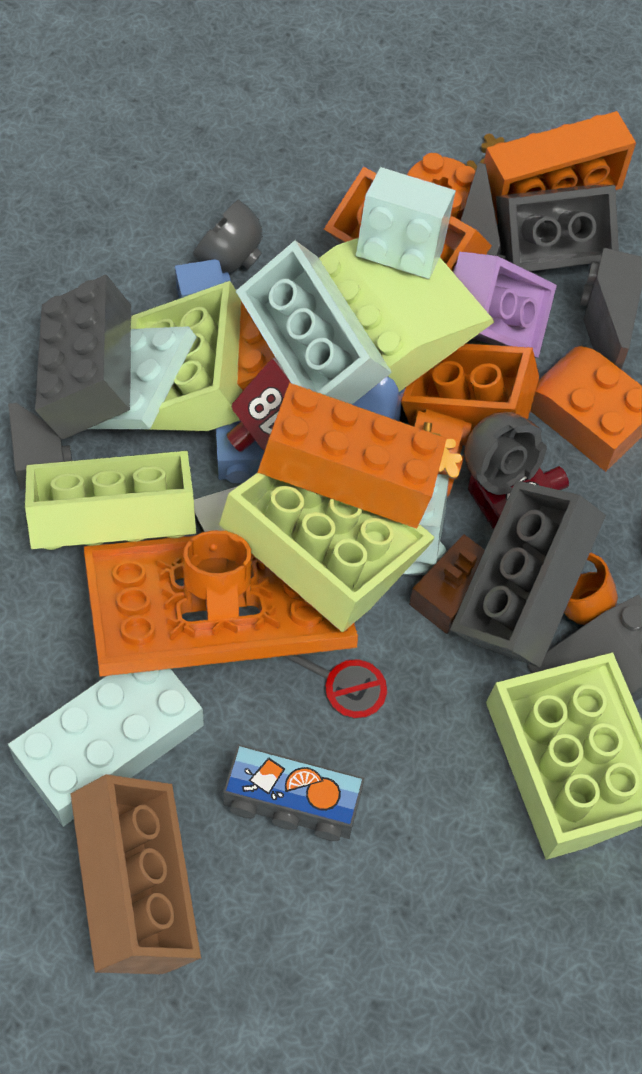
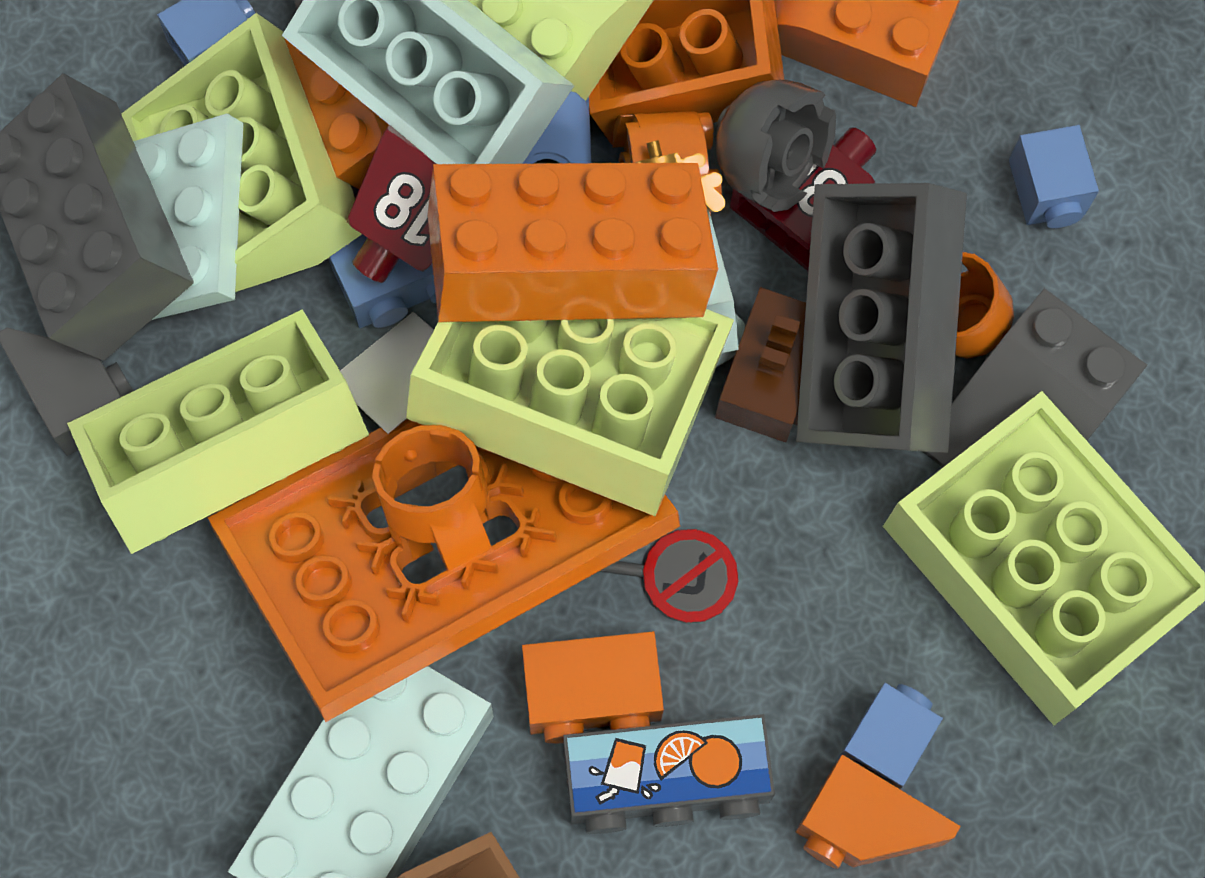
camera: 20 degrees left, 10 degrees up
(268, 723) = (592, 684): none -> orange brick
(405, 869) = (868, 820): none -> orange slope
(438, 824) = (893, 733): none -> medium blue brick

